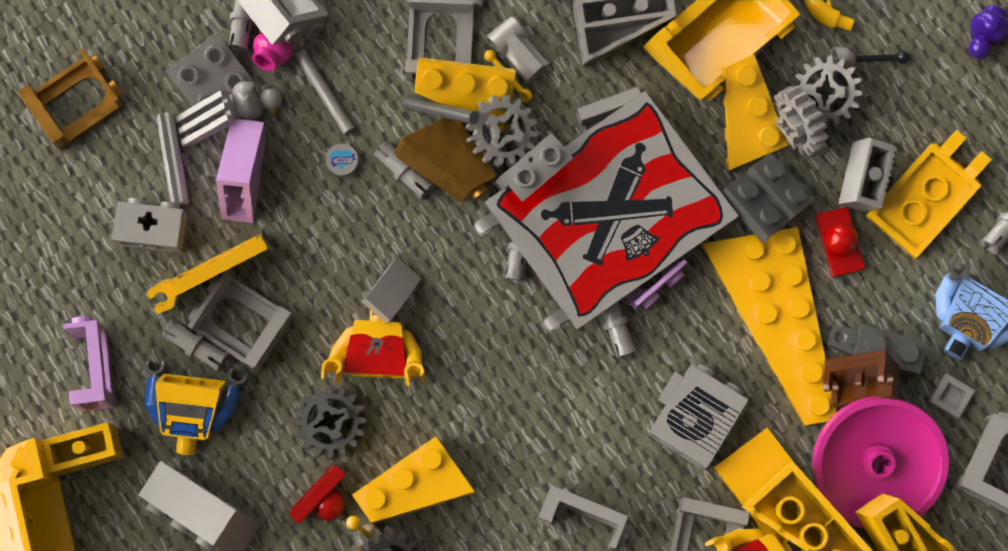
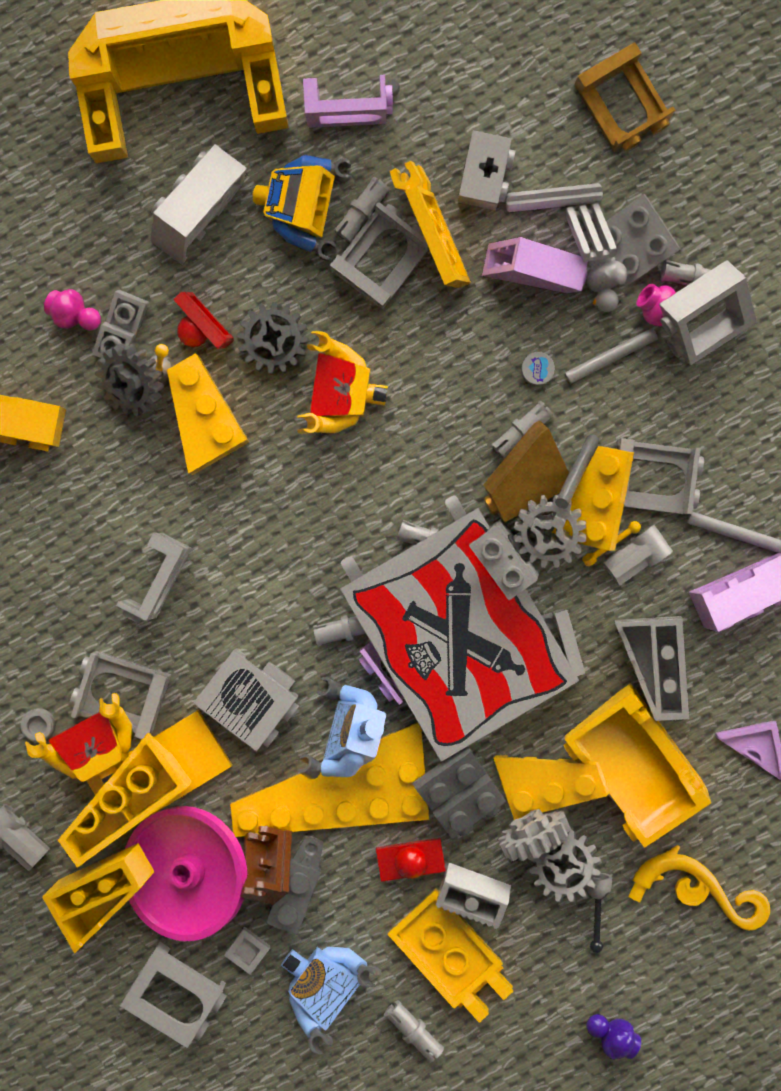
camera: 90 degrees right, 10 degrees up
(391, 290) = (397, 408): light grey slope -> none
(720, 304) = (353, 734): none -> light blue torso

